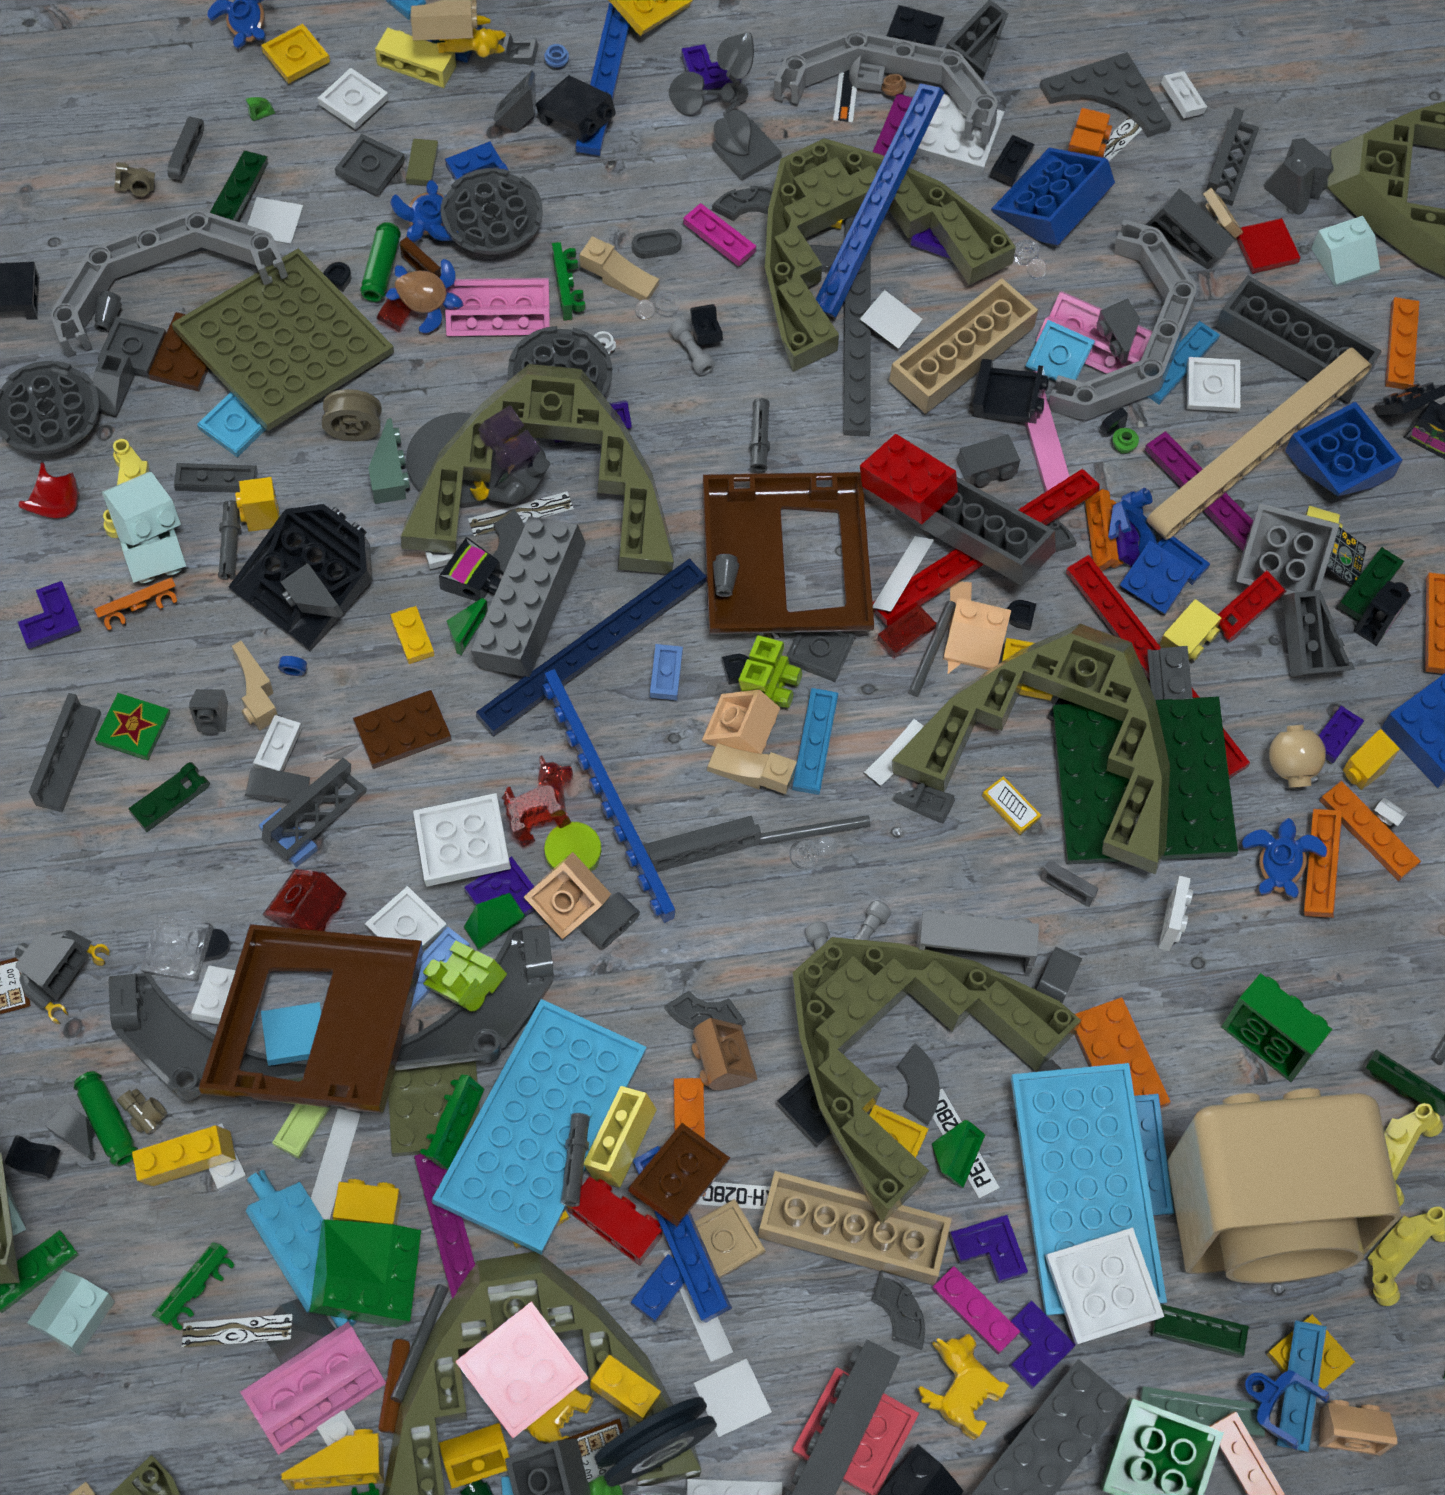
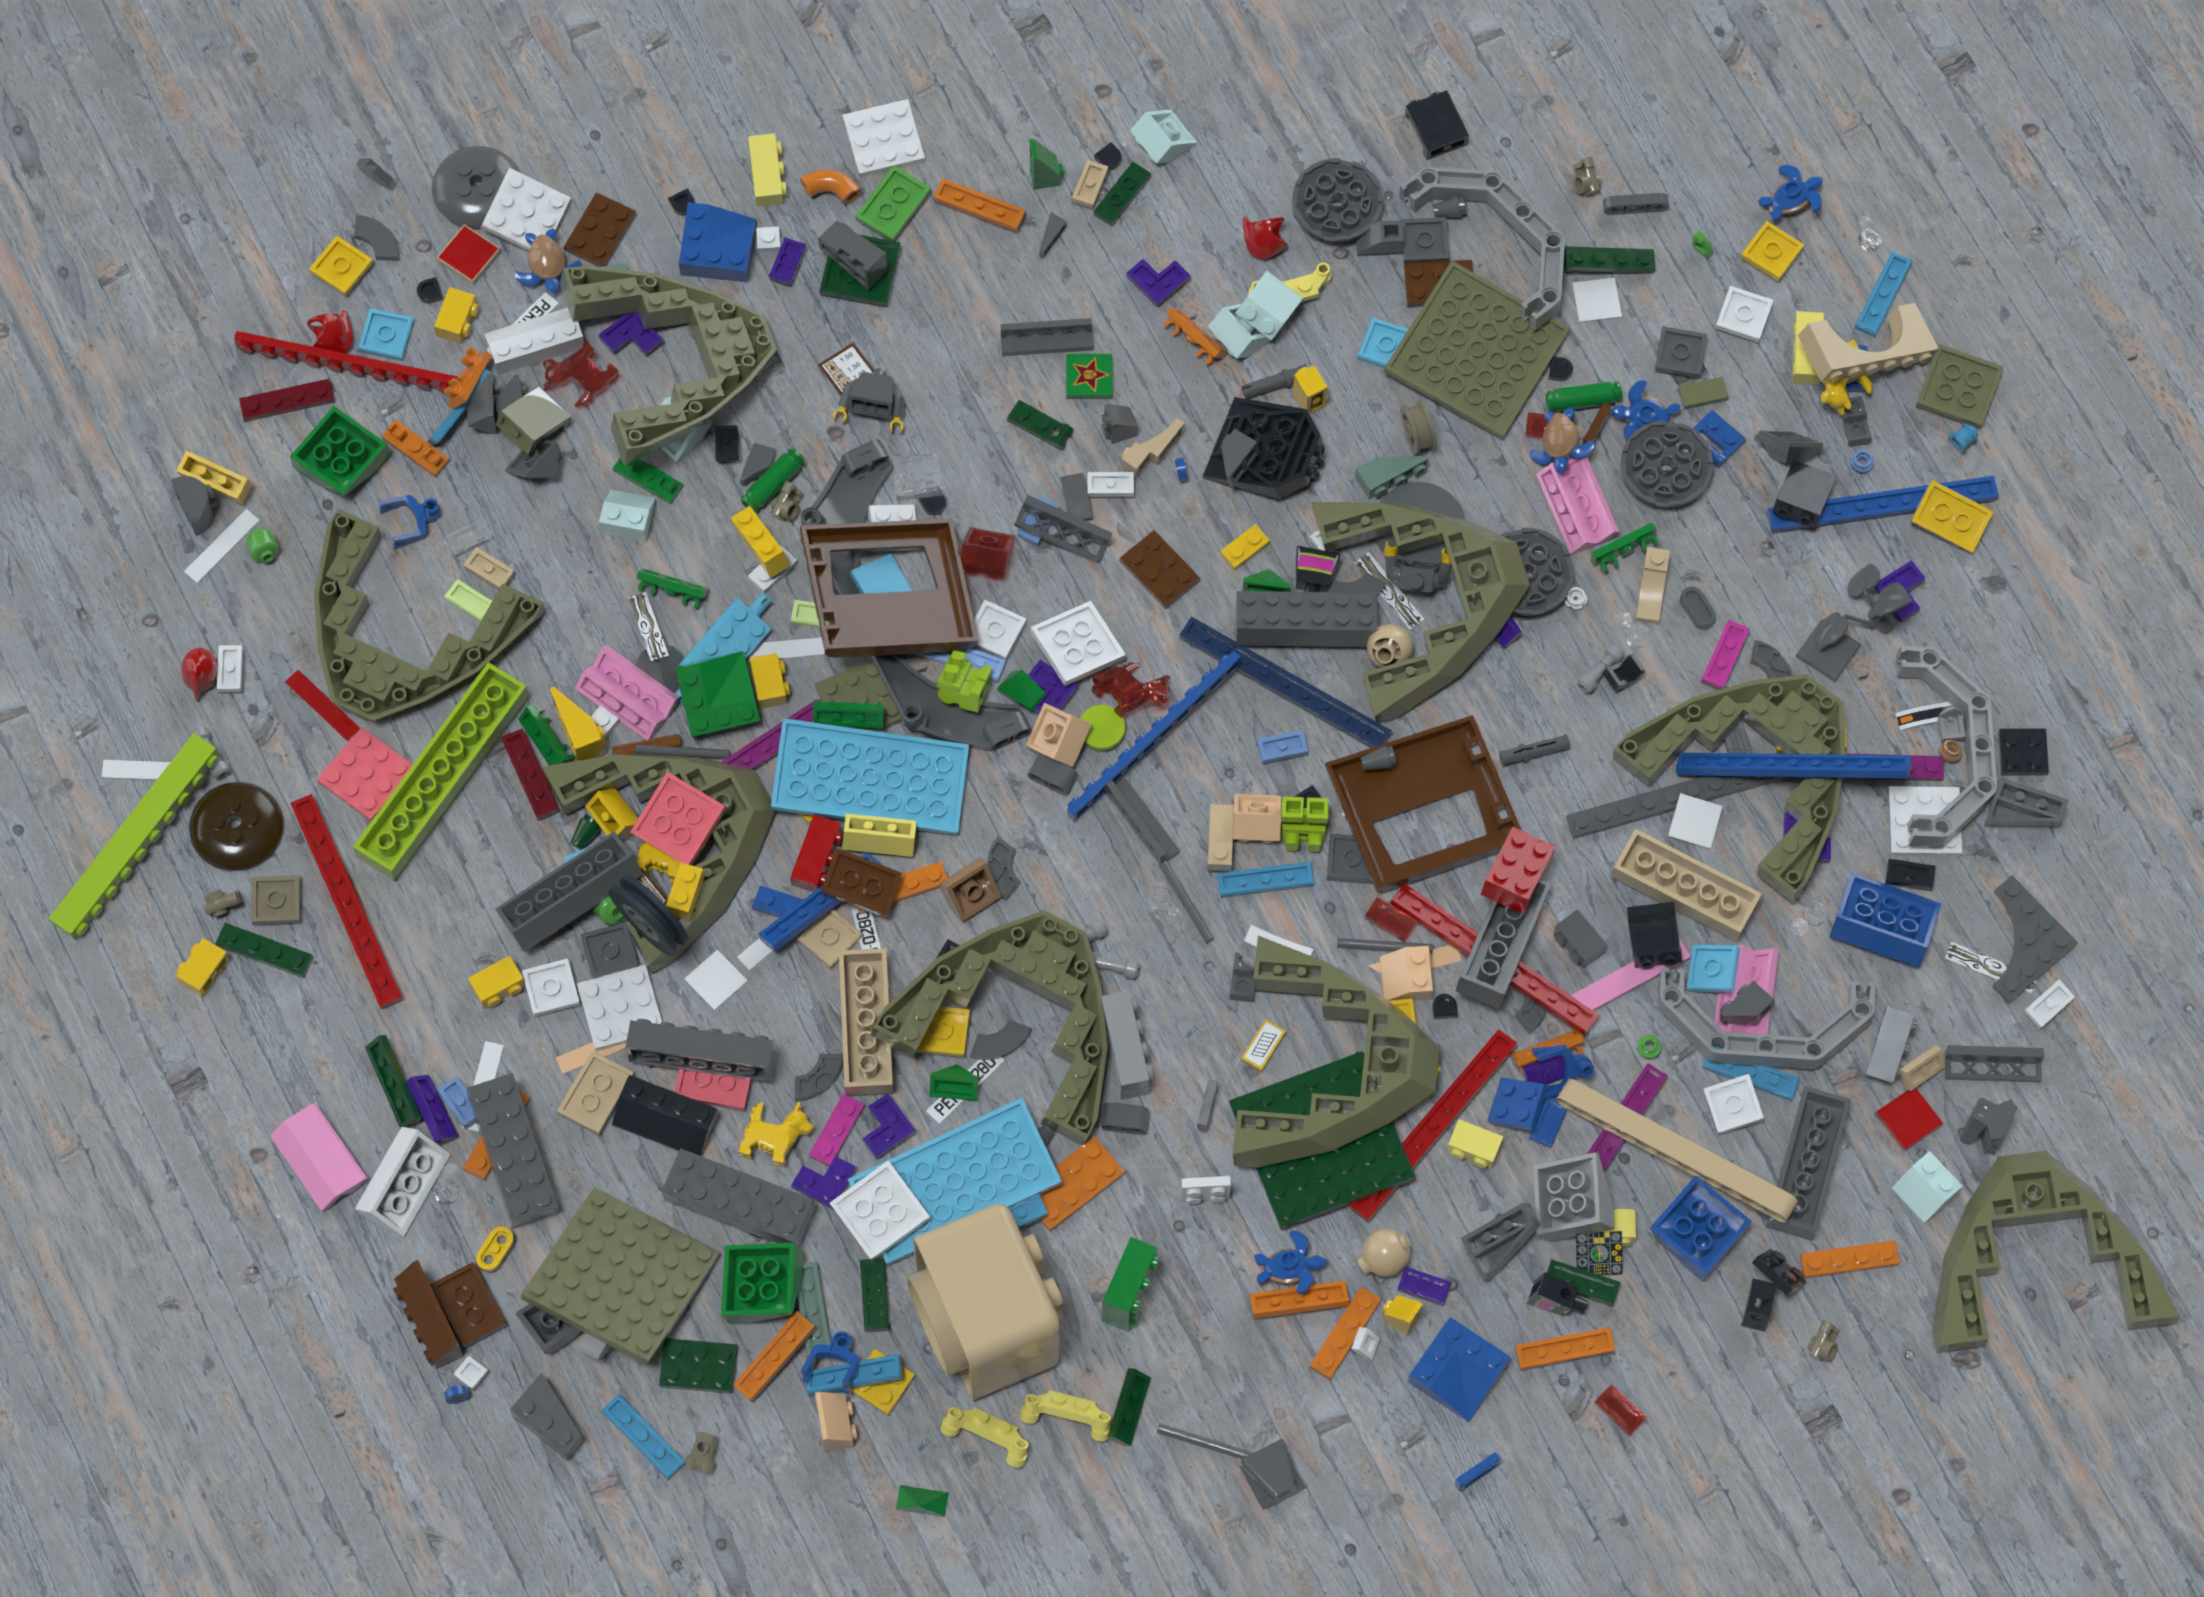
camera: 75 degrees right, 5 degrees up
(212, 477) = (1330, 350): dark grey tile -> none
(502, 428) = (1428, 537): clear purple piece -> none
(576, 1150) = (849, 805): dark grey pin -> none
(597, 524) = (1389, 645): none -> tan brick
(902, 573) = (1443, 900): white sticker -> none
(1090, 133) = (1949, 933): orange piece -> none
(1114, 422) = (1661, 1031): black tile -> none
(1170, 673) = (1423, 1134): dark grey plate -> none
(1250, 605) = (1514, 1182): red plate -> none

